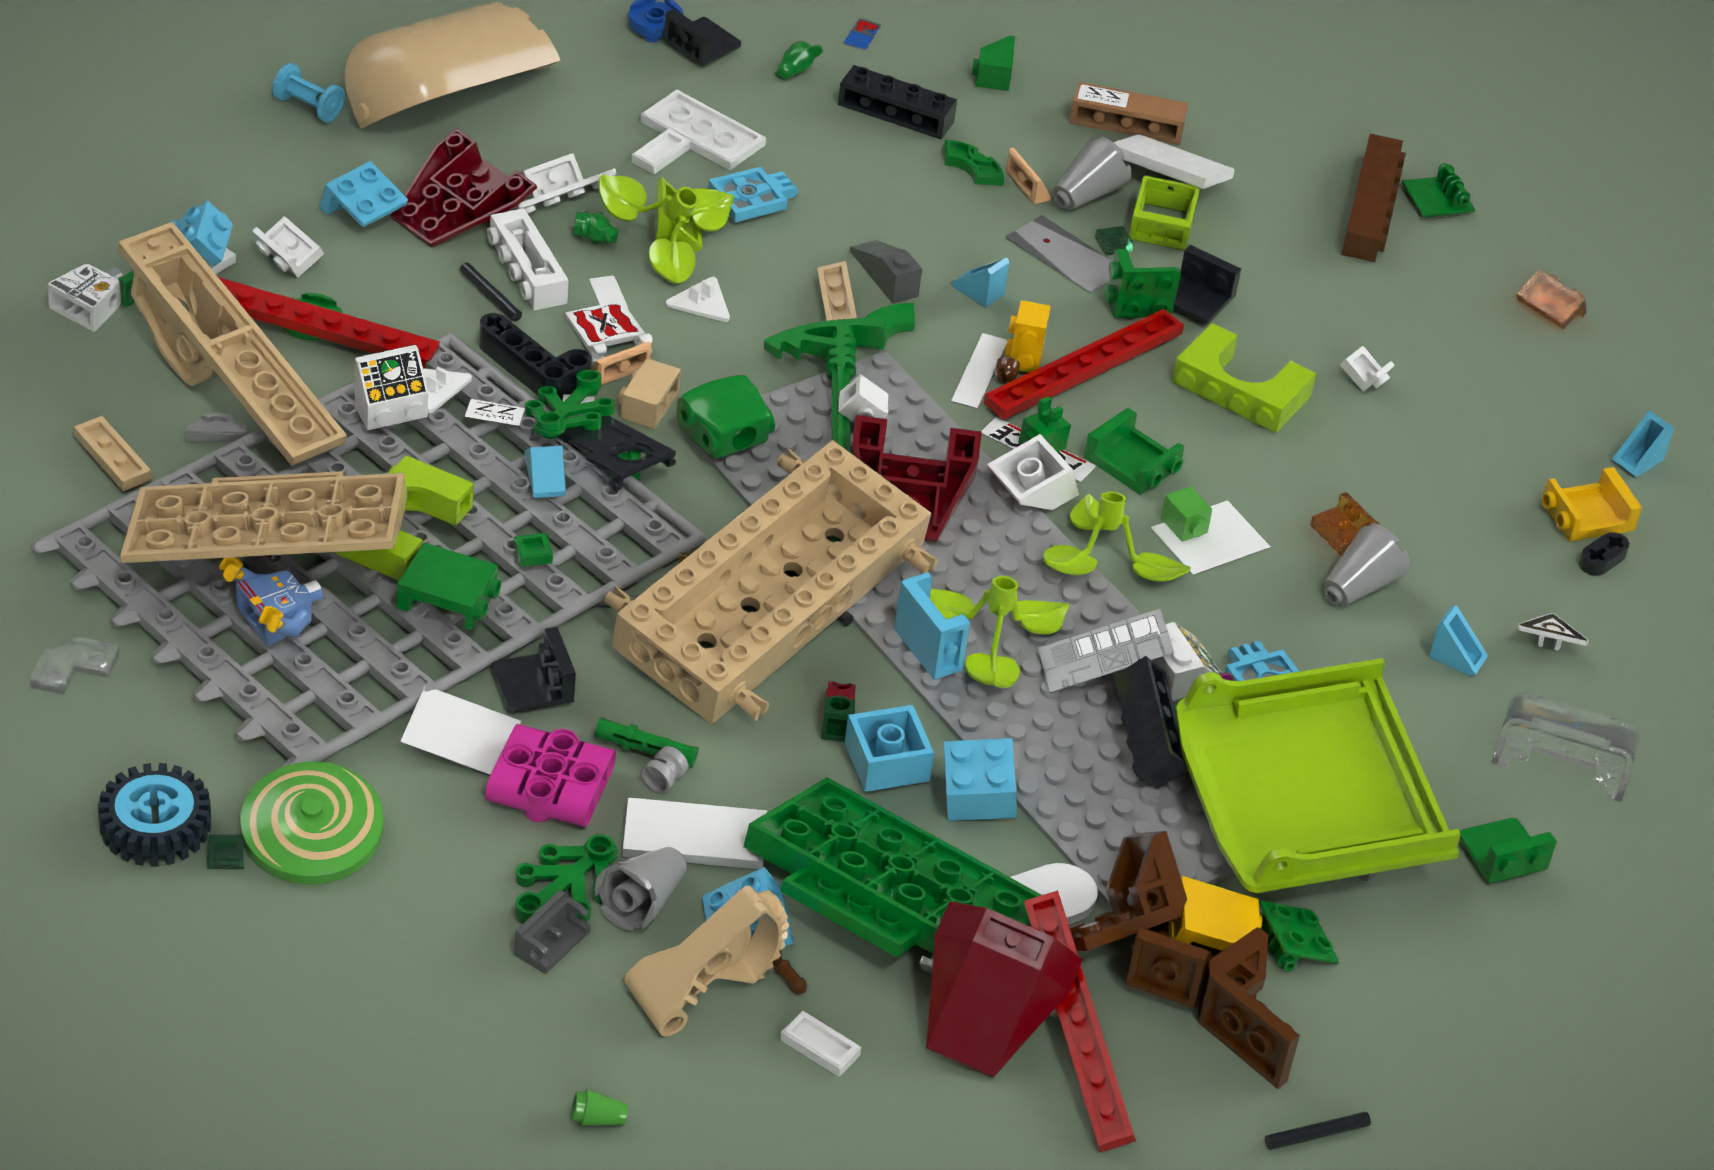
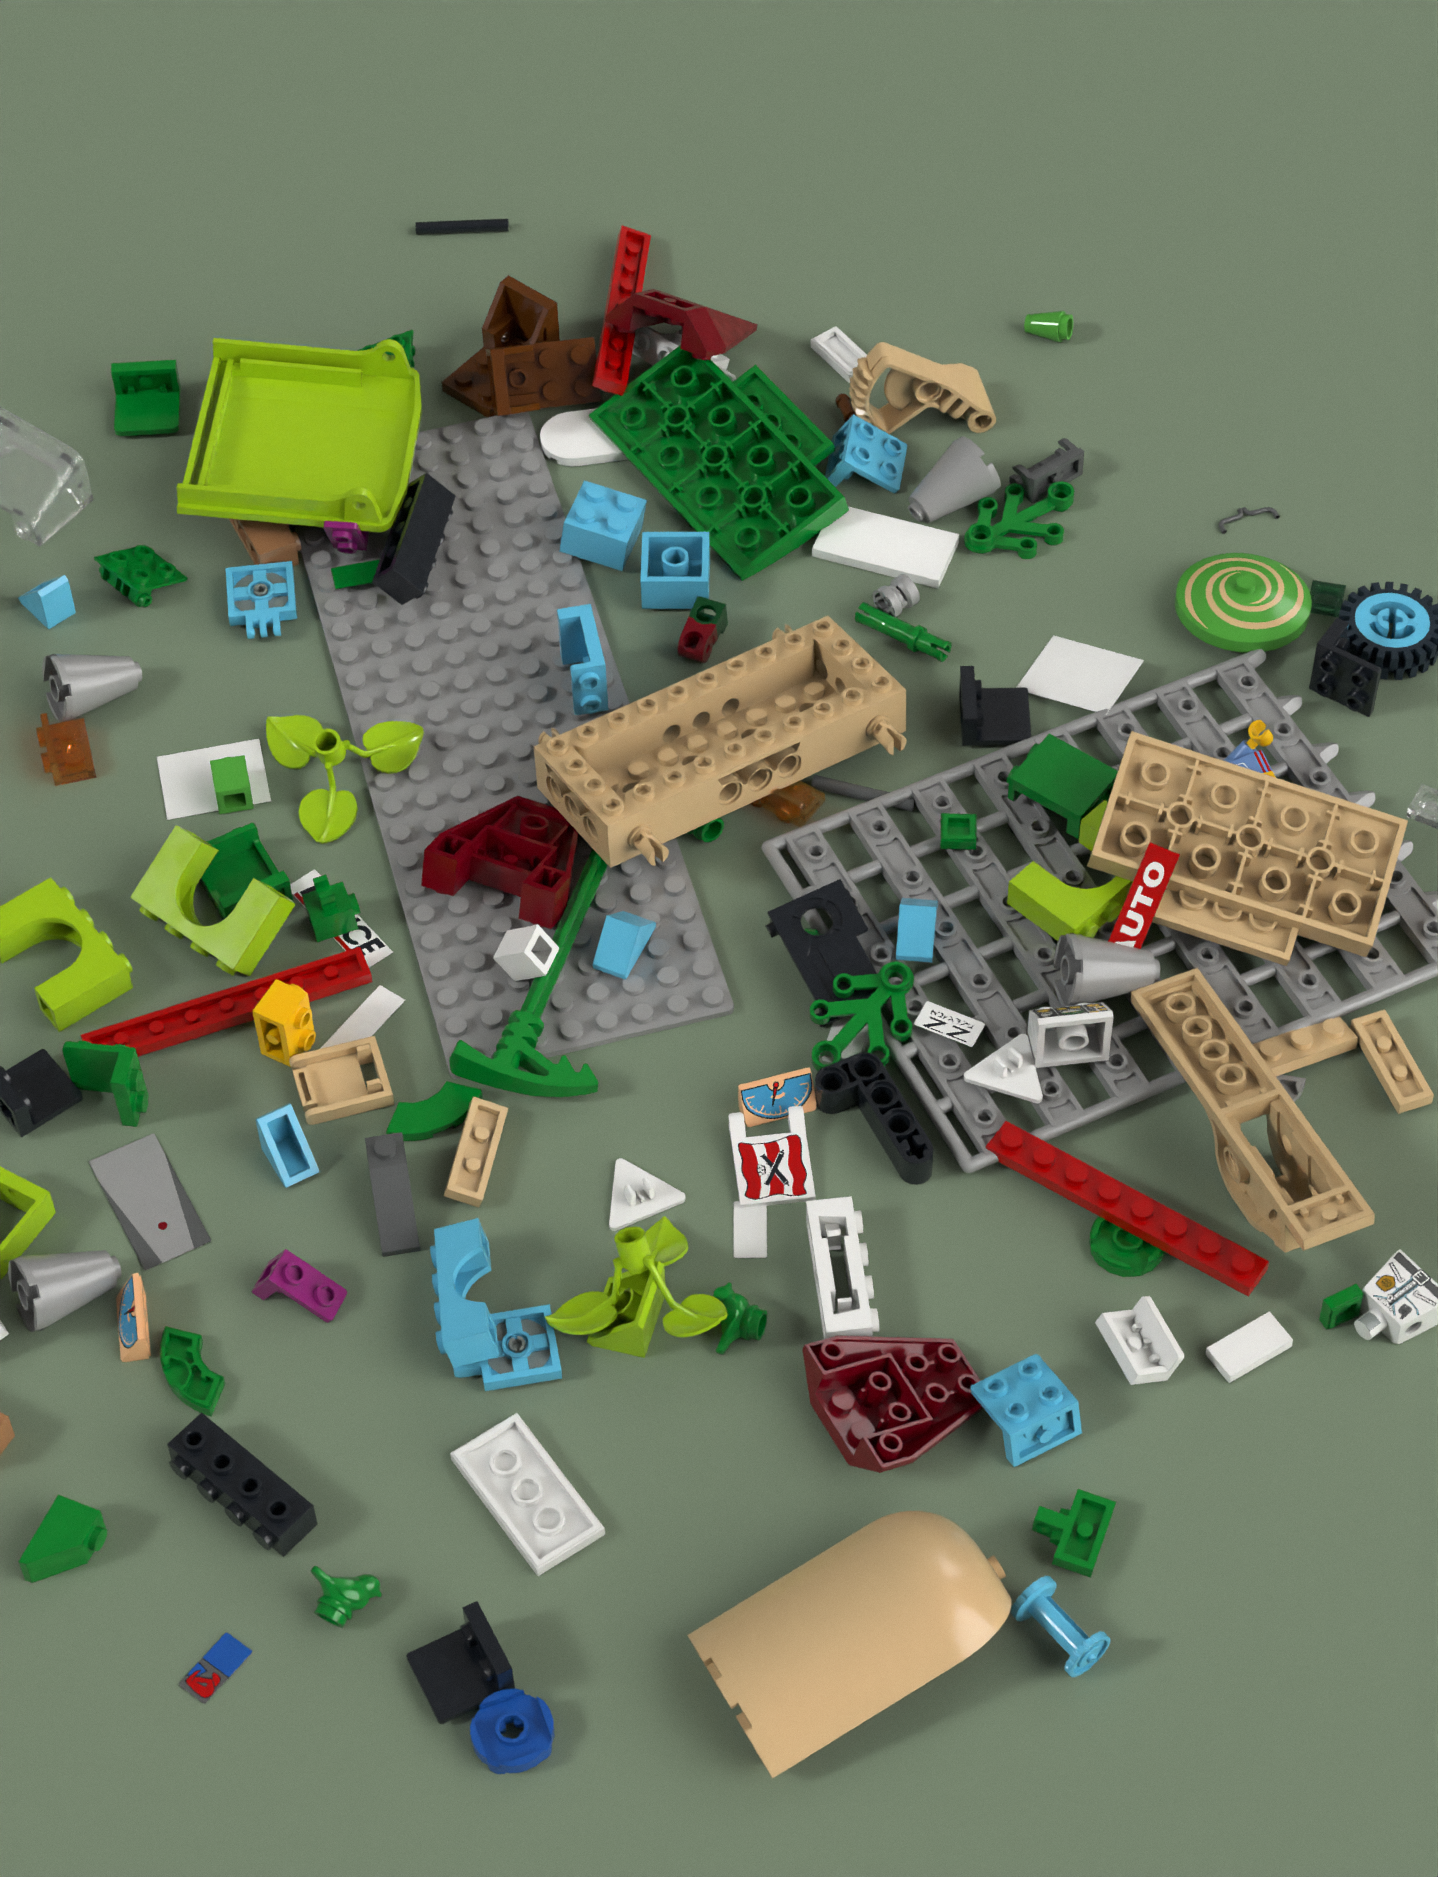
camera: 155 degrees left, 10 degrees up
(193, 446) = (1306, 1045): none -> tan plate
(199, 739) = (1342, 674): none -> black bracket
(206, 231) = (1262, 1362): medium azure bracket -> none
(308, 146) = (1076, 1531): none -> green hinge
(329, 939) = (1247, 512): none -> dark grey piece
(353, 470) = (1144, 896): none -> red sticker
(374, 437) = (1100, 969): none -> light grey cone
(490, 291) = (897, 1245): black bar -> none
(550, 775) = (1006, 608): dark pink connector -> none
(556, 179) = (750, 1398): white bracket -> none
(649, 393) = (757, 1041): tan brick -> none
(660, 151) = (601, 1459): white tile -> none
(725, 416) = (688, 956): green piece -> none
(786, 172) = (467, 1327): none -> medium azure arch
(791, 435) = (622, 943): none -> medium azure slope
(929, 196) = (302, 1284): none -> magenta bracket
(969, 331) = (333, 1083): none -> tan container
(1007, 369) = (329, 1011): reddish brown hinge -> none
(1035, 616) = (534, 639): lime plant -> none
(1036, 475) = (375, 846): white slope -> none
(1104, 650) = (416, 617): light grey sticker -> none
(1113, 239) = (79, 1204): clear green tile -> none
(1176, 419) = (169, 892): none -> lime arch
(1186, 662) = (341, 606): white slope -> none
(1214, 915) = (457, 361): yellow panel -> none
(1235, 1015) = (468, 296): reddish brown bracket -> none
(1405, 680) = (137, 573): none -> green hinge

